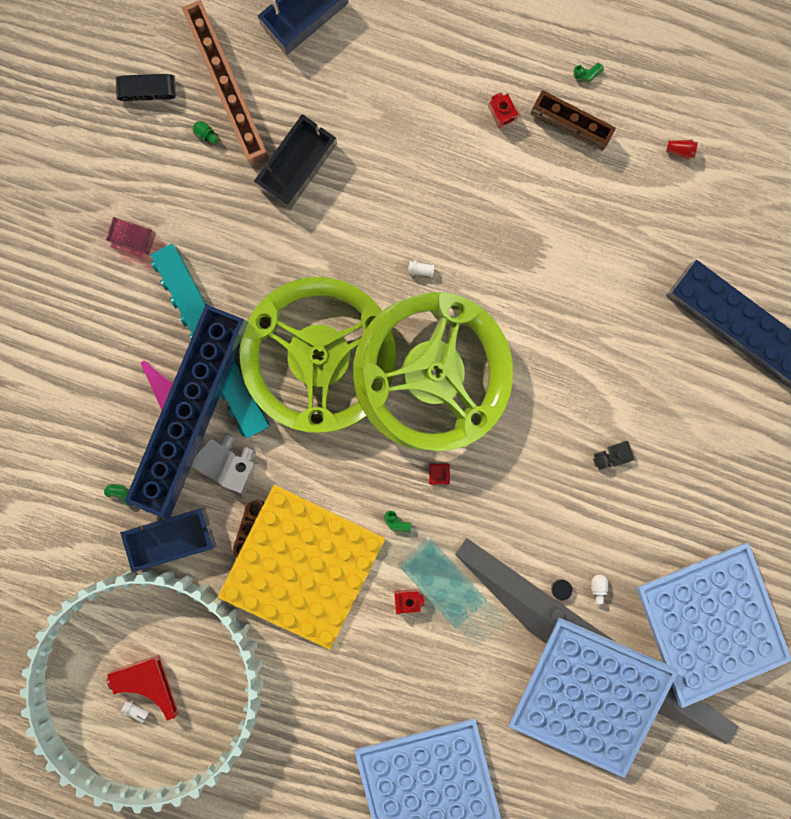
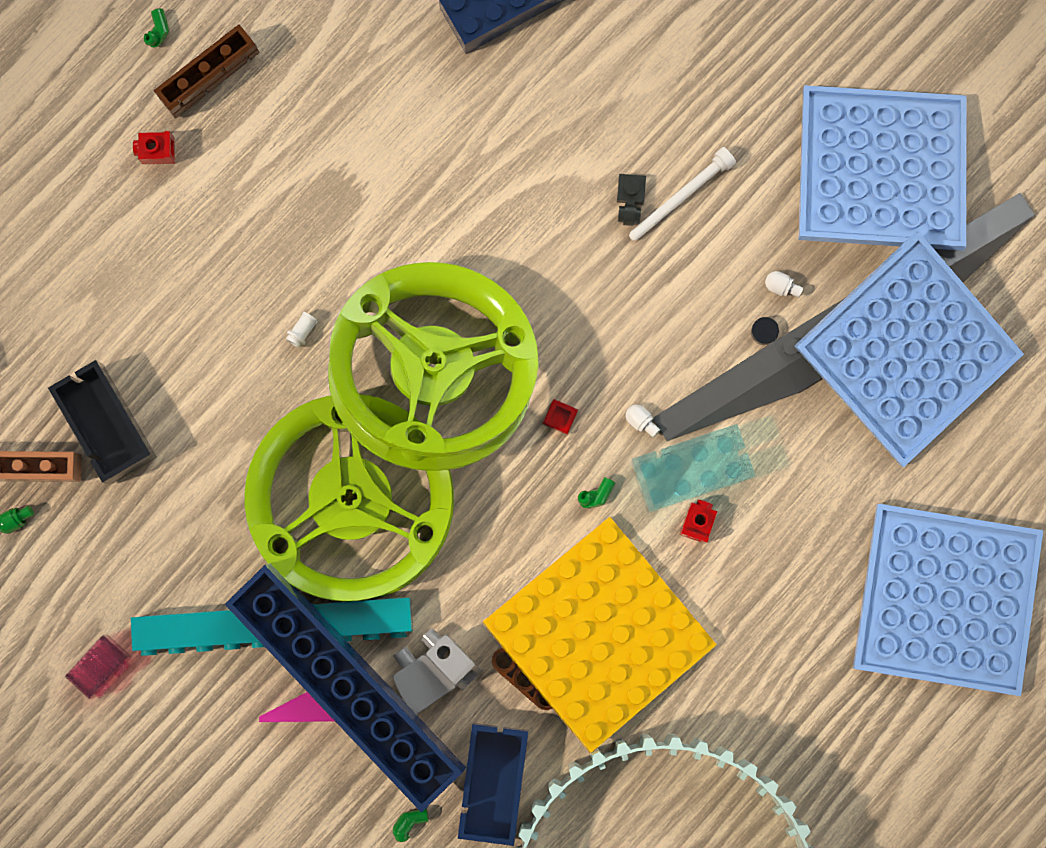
camera: 60 degrees left, 5 degrees down
(461, 531) = (641, 420): none -> white cylinder
(668, 508) = (722, 160): none -> white piece

